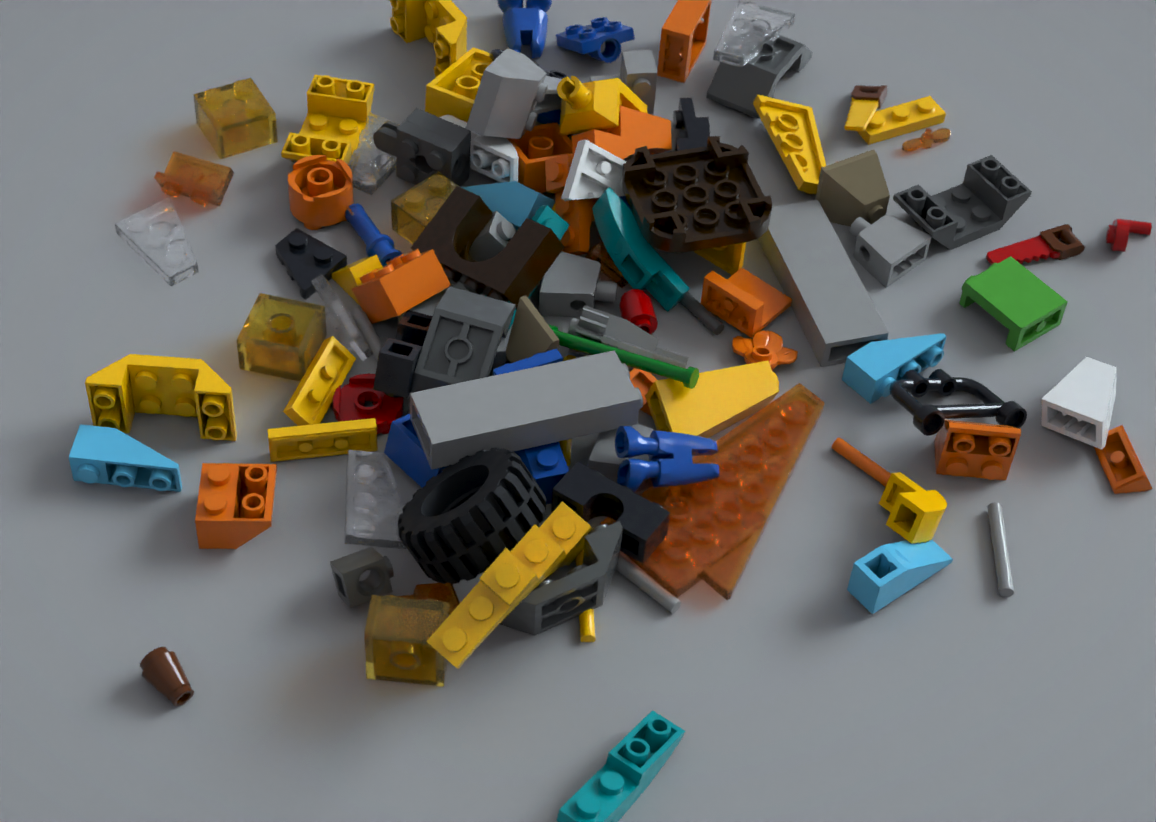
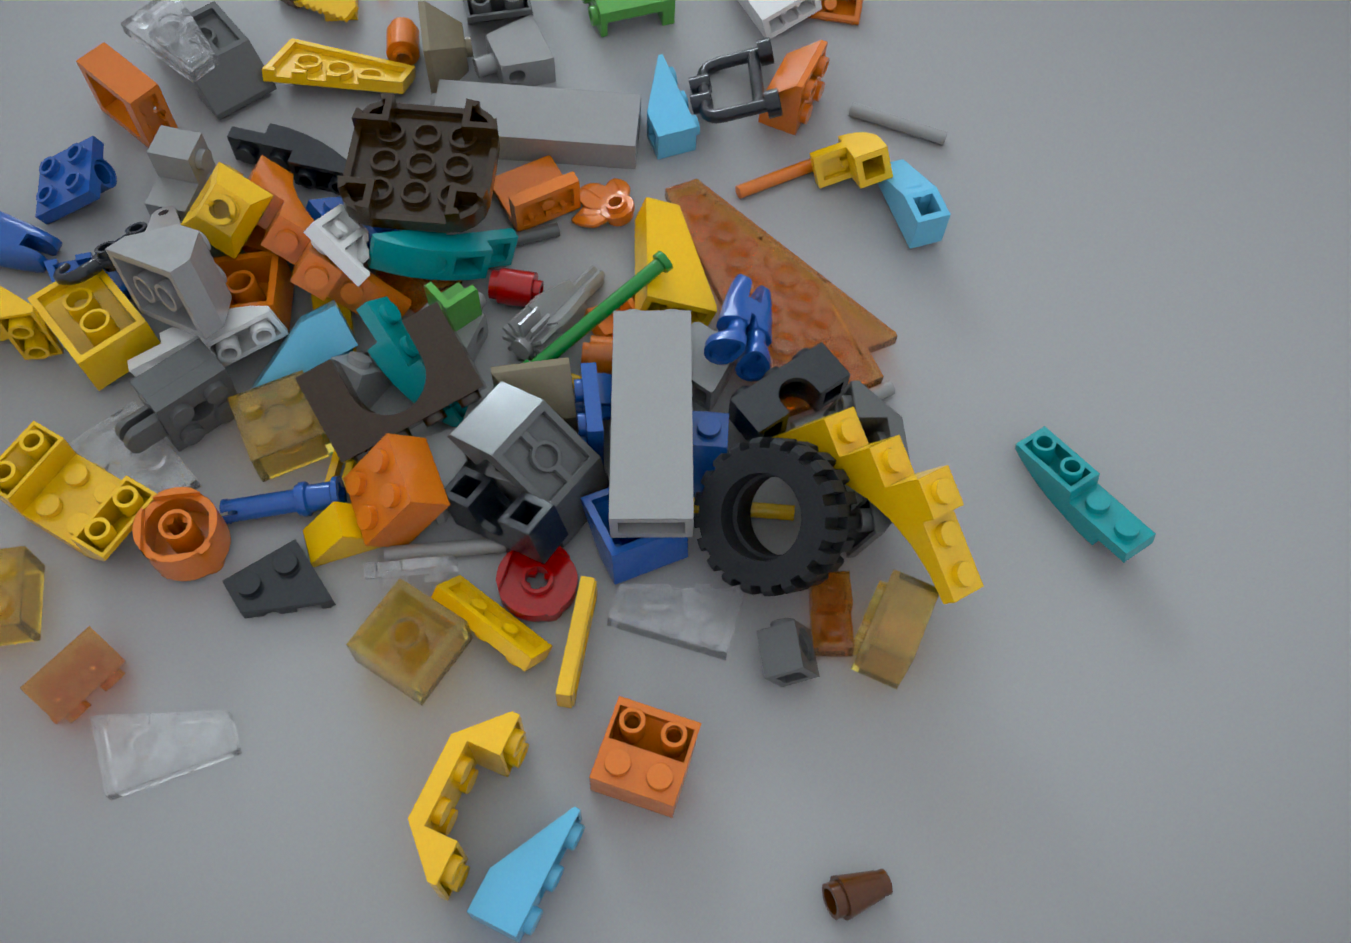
camera: 70 degrees left, 15 degrees up
(581, 268) = (459, 303): none -> bright green panel

